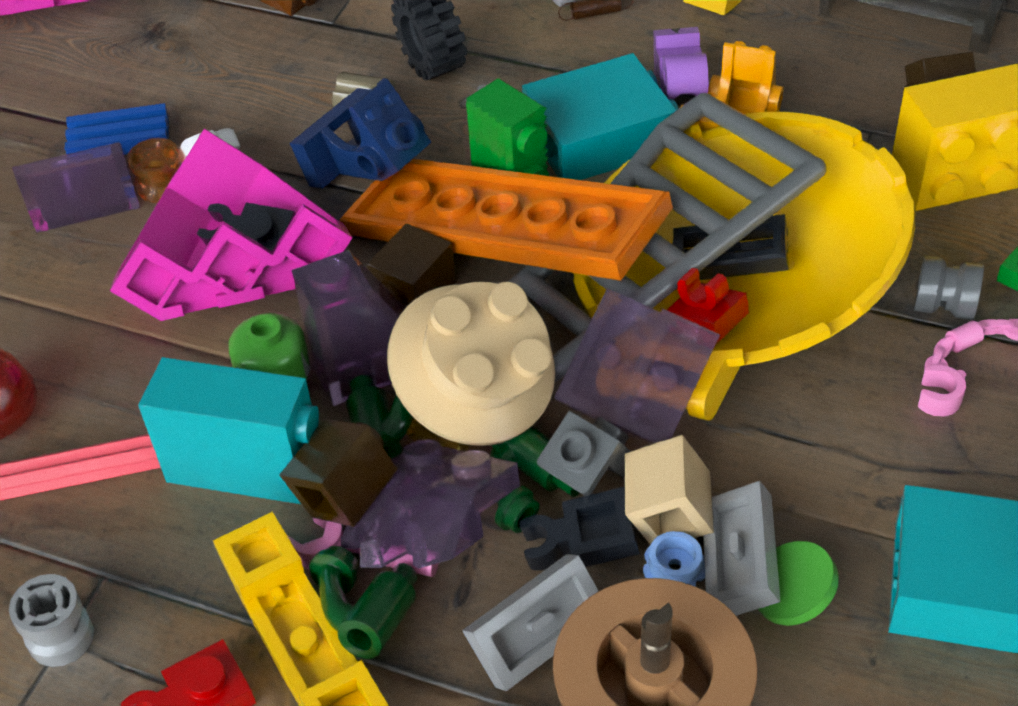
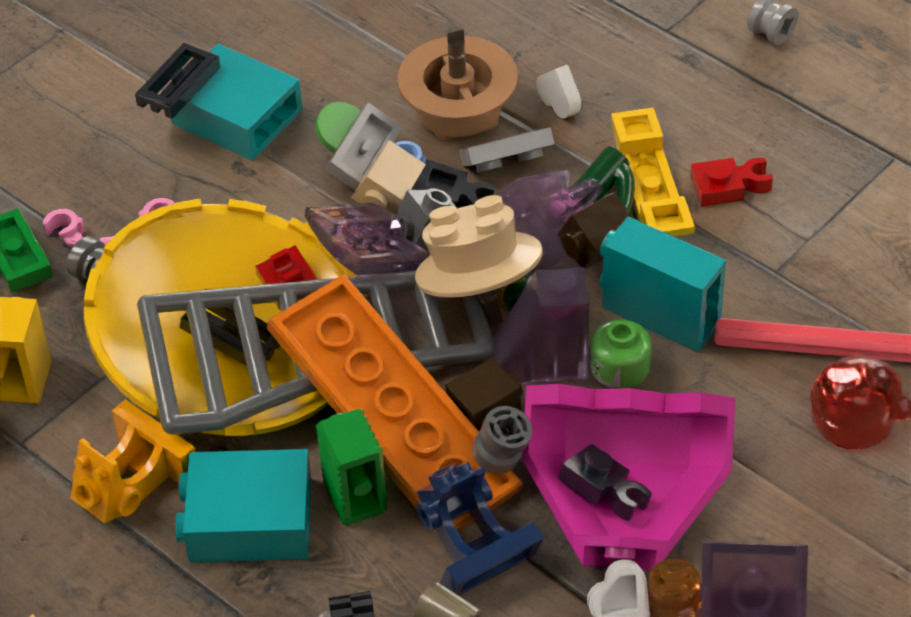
camera: 160 degrees left, 0 degrees up
(51, 620) = (810, 228): light grey wheel -> none
(362, 200) = (502, 439): none -> dark grey wheel
(680, 62) = (145, 522): medium lavender leg -> none

